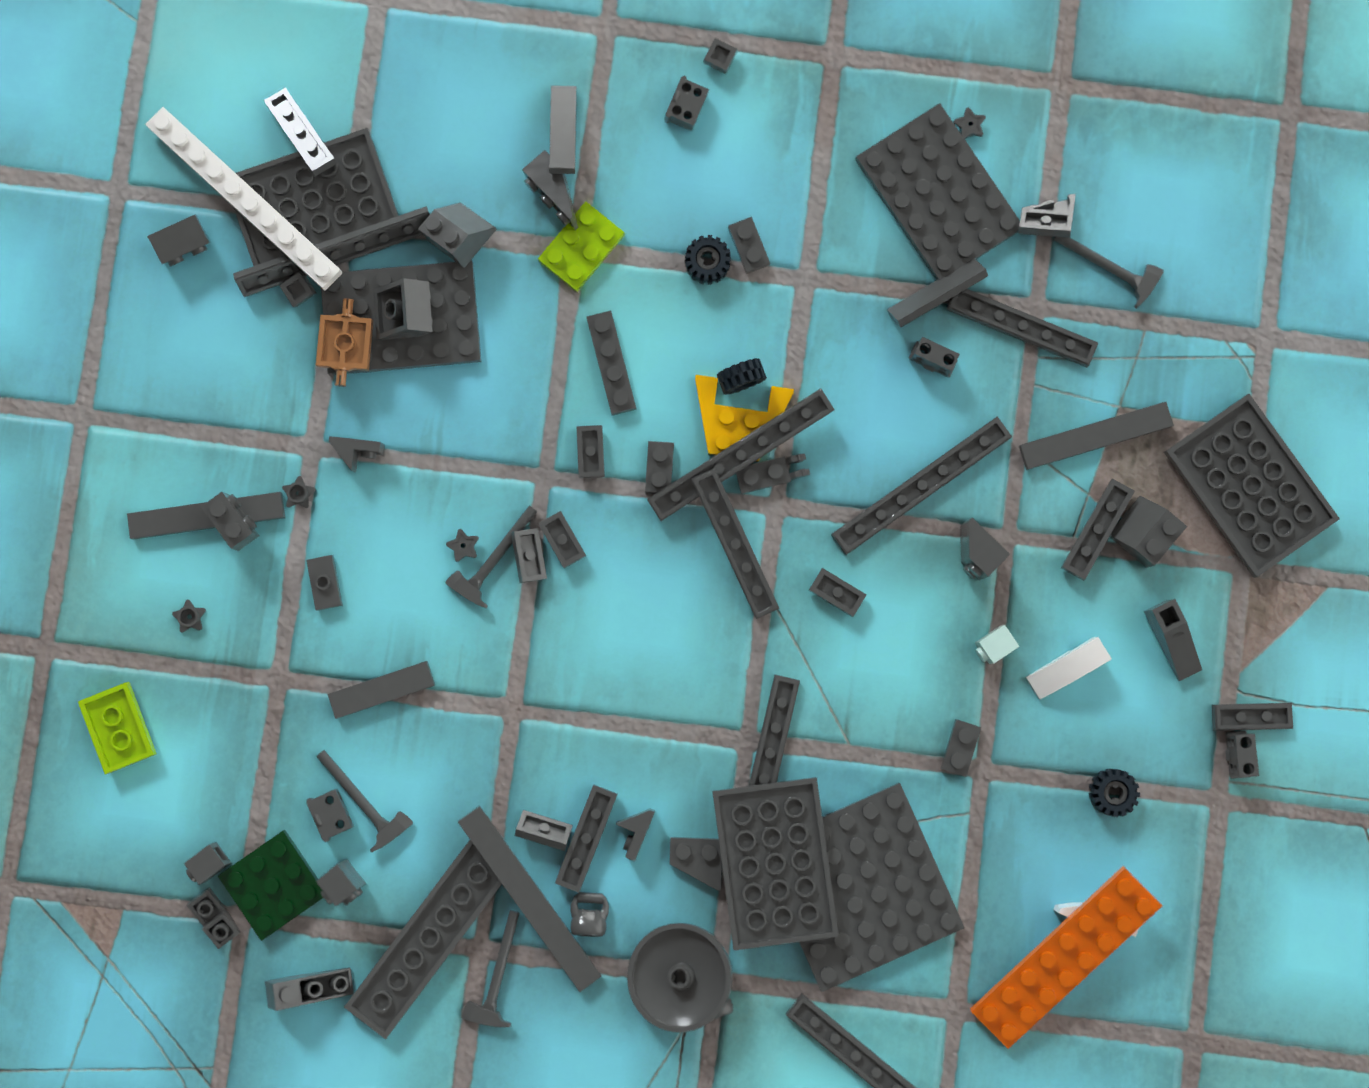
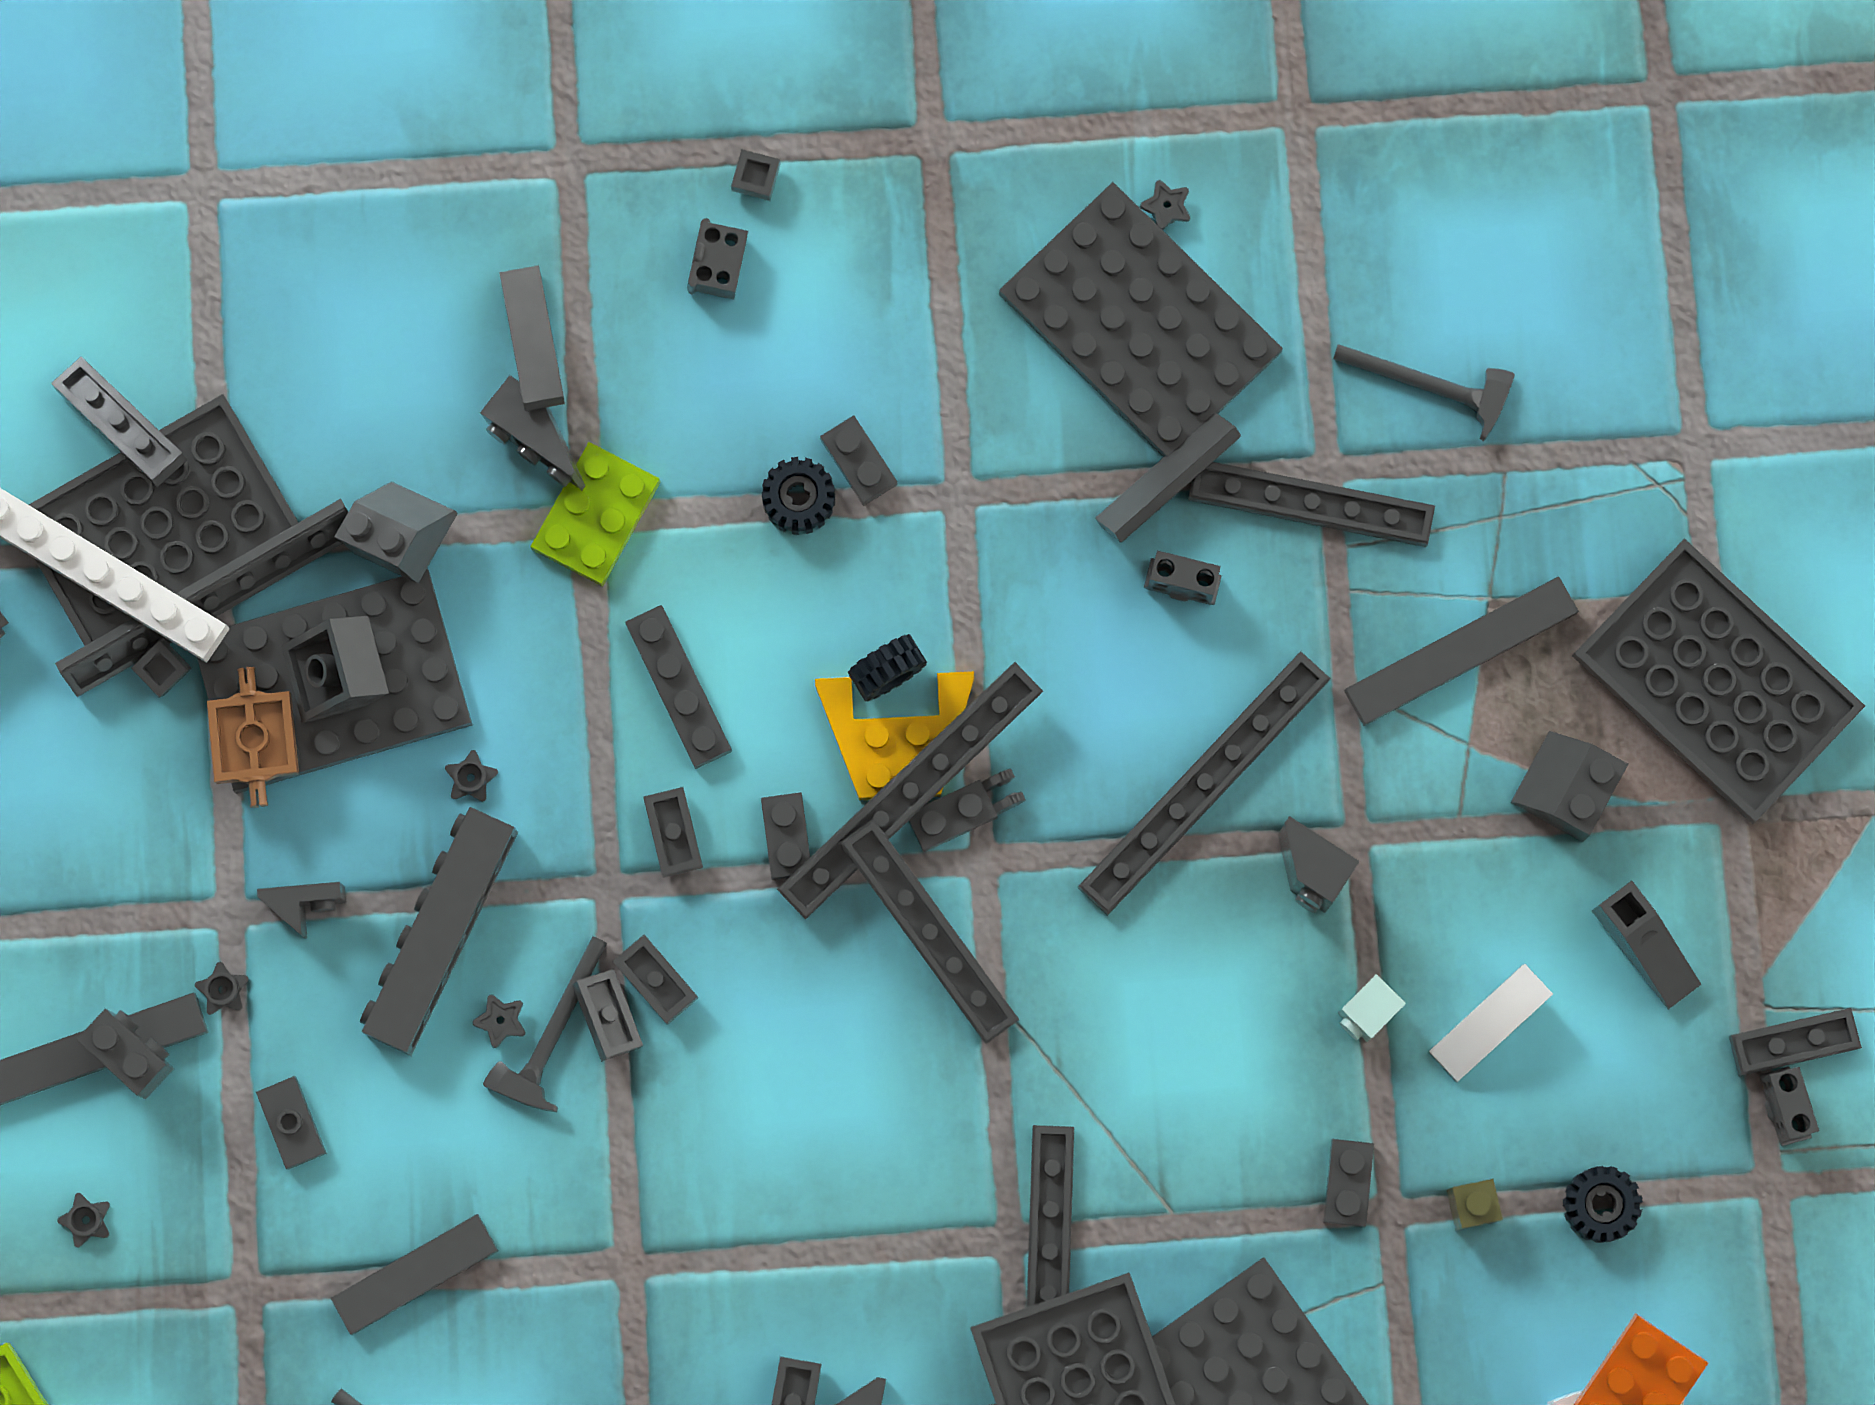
camera: 10 degrees left, 5 degrees down
(436, 483) = (439, 930): none -> dark grey brick
(467, 390) = (473, 766): none -> dark grey plate
(837, 592) = (1105, 976): dark grey plate -> none
(1035, 777) = (1474, 1204): none -> olive brick
(1048, 218) = (1318, 327): wing -> none
(1097, 529) = (1493, 797): dark grey plate -> none

